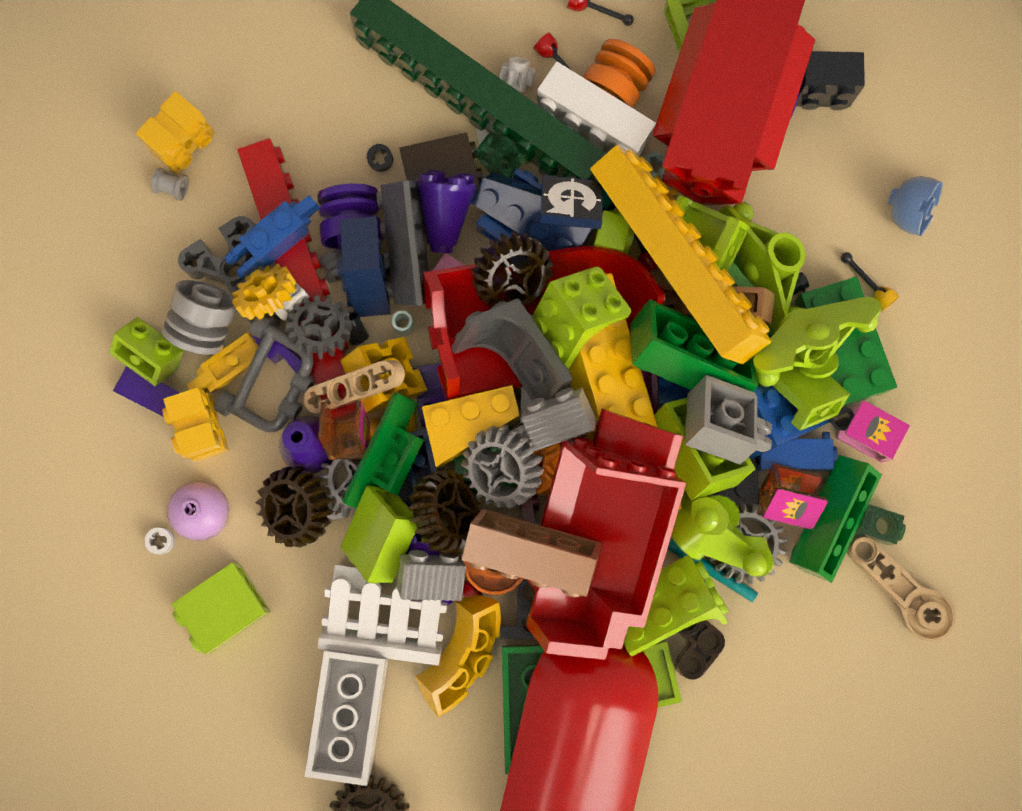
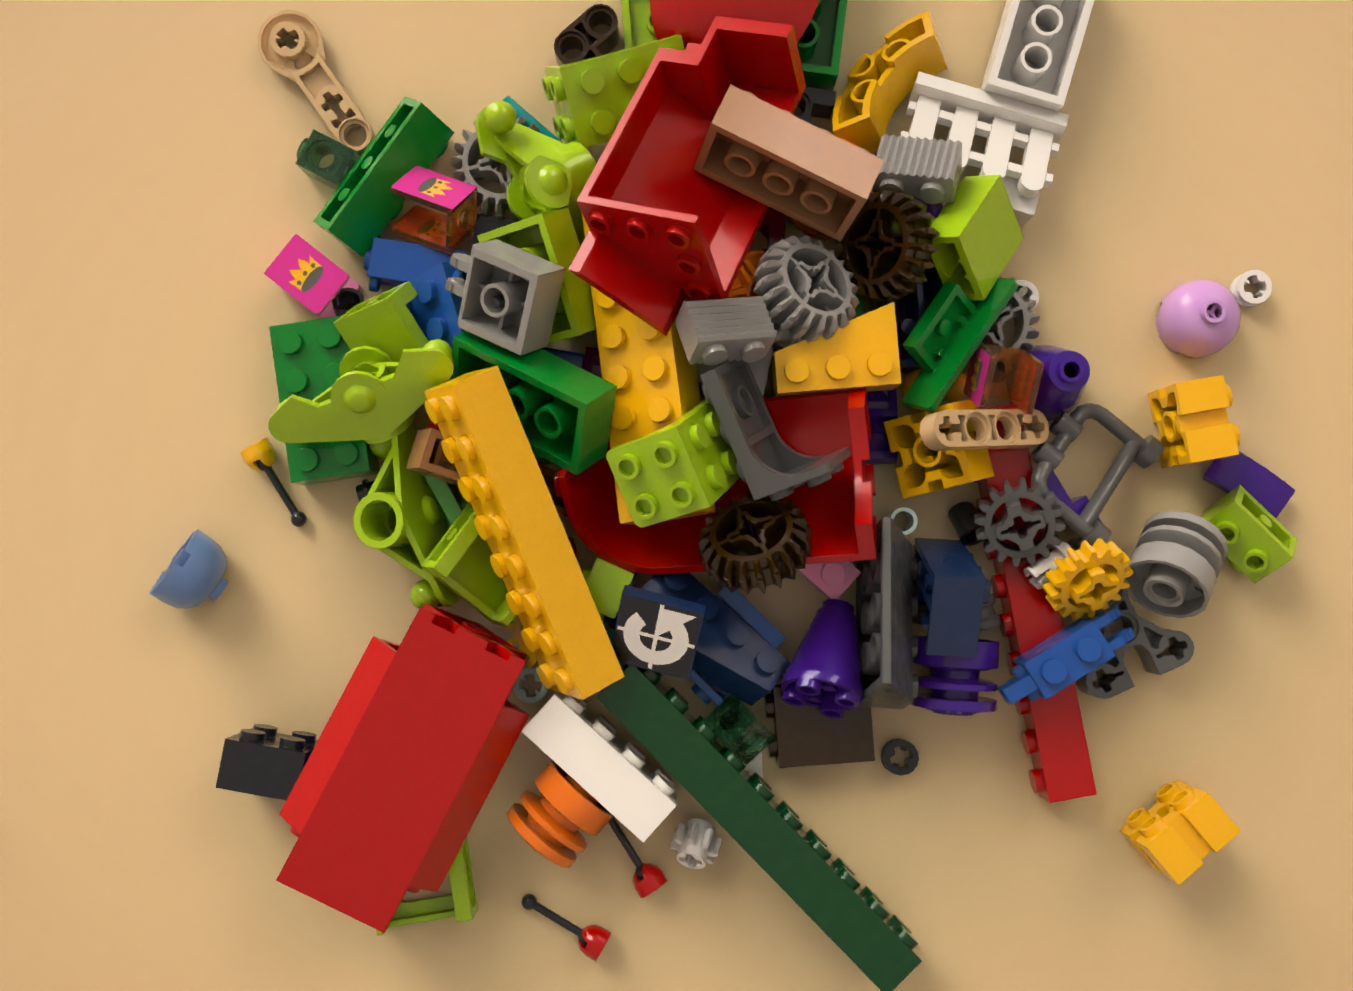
camera: 170 degrees left, 5 degrees up
(169, 184) = (1190, 763): light grey bush -> none
(219, 608) = (1183, 188): lime brick -> none
(225, 365) = (1143, 499): yellow hinge -> none
(305, 507) = (1076, 297): dark brown gear -> none

